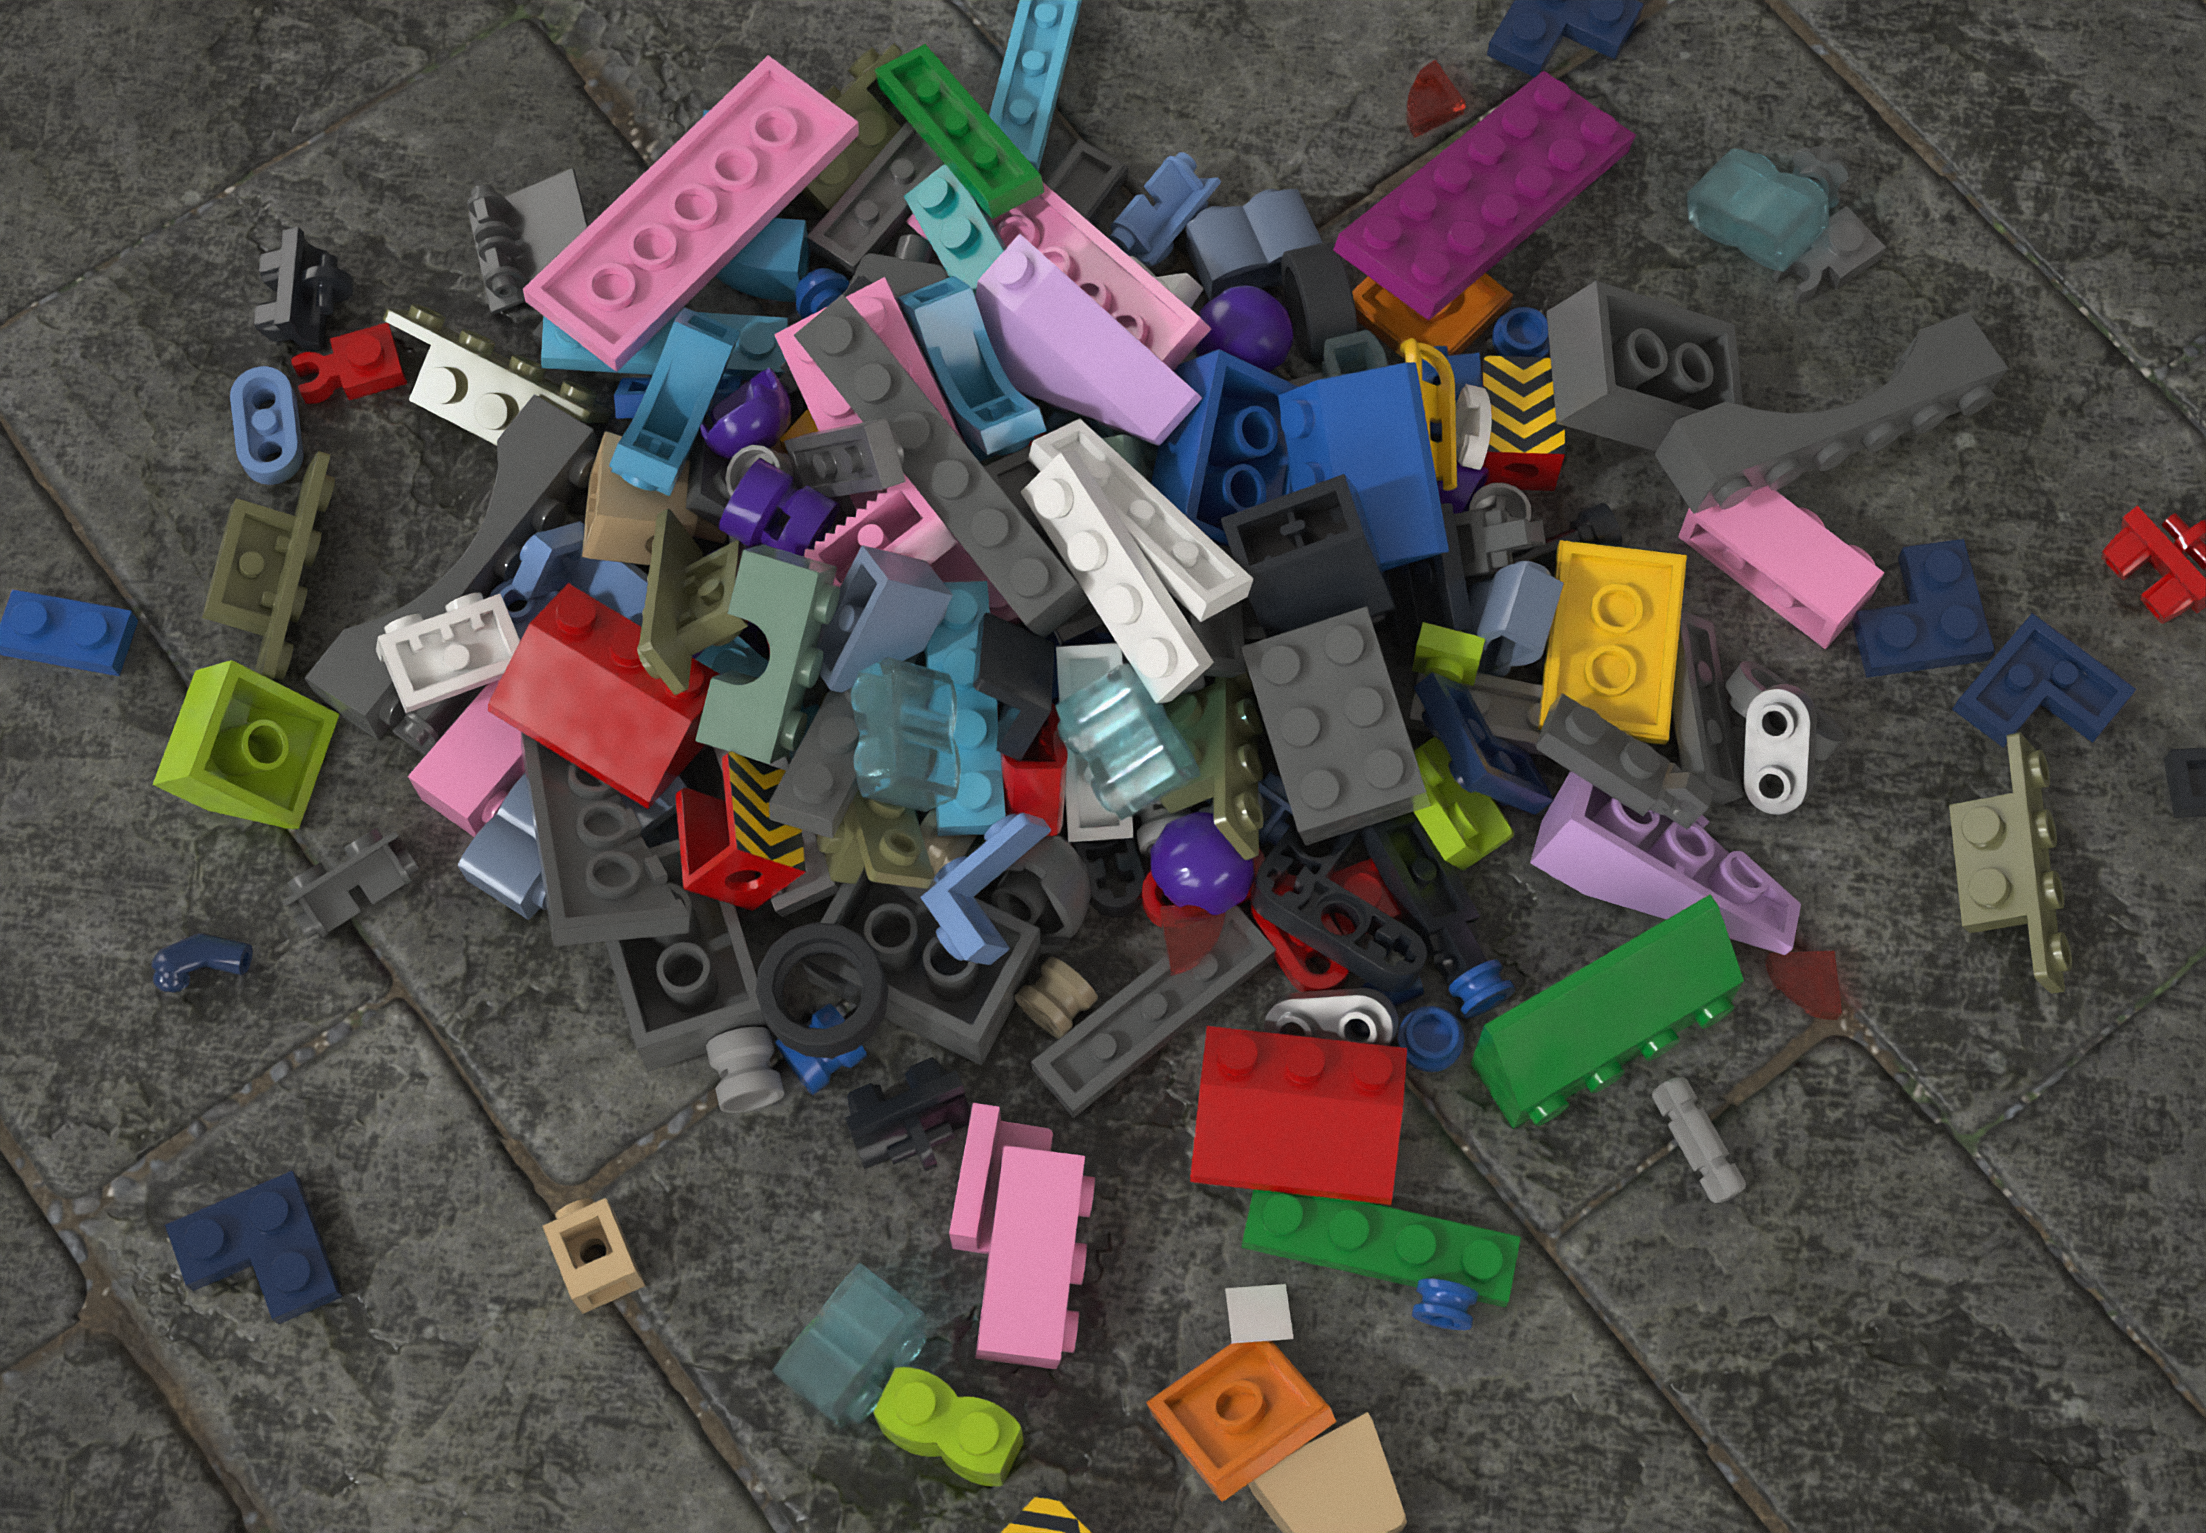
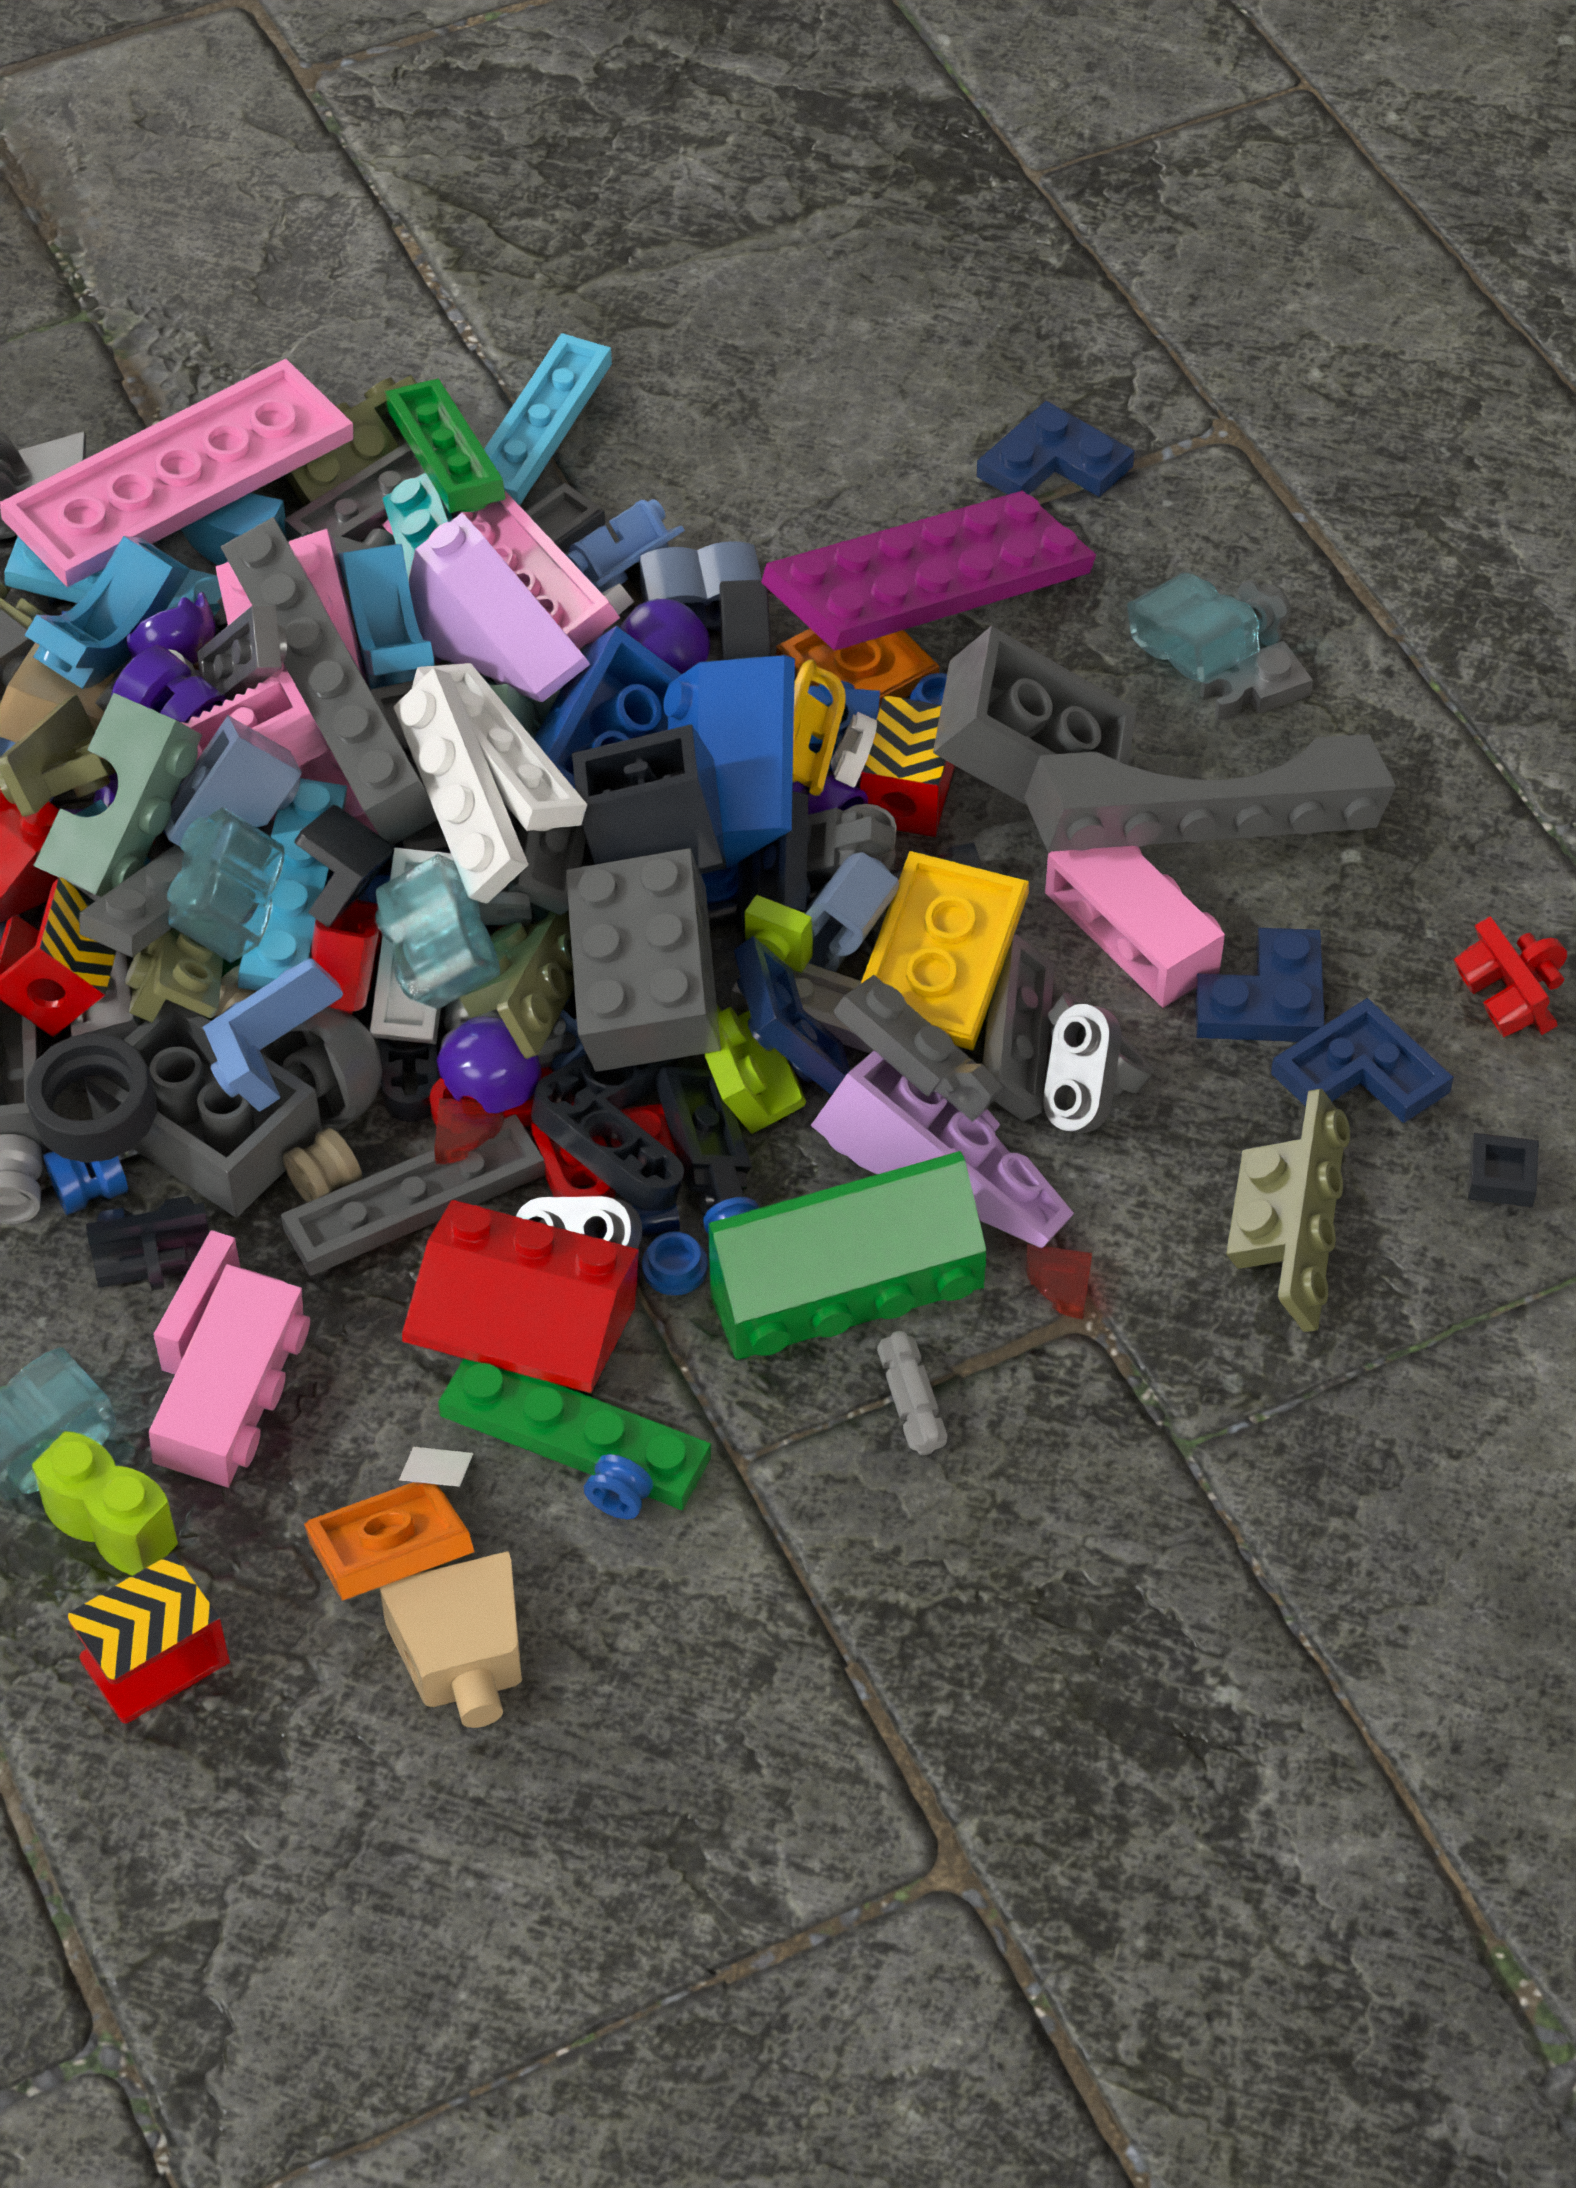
camera: 10 degrees right, 15 degrees down
(1432, 100) = (910, 500): clear red tile -> none

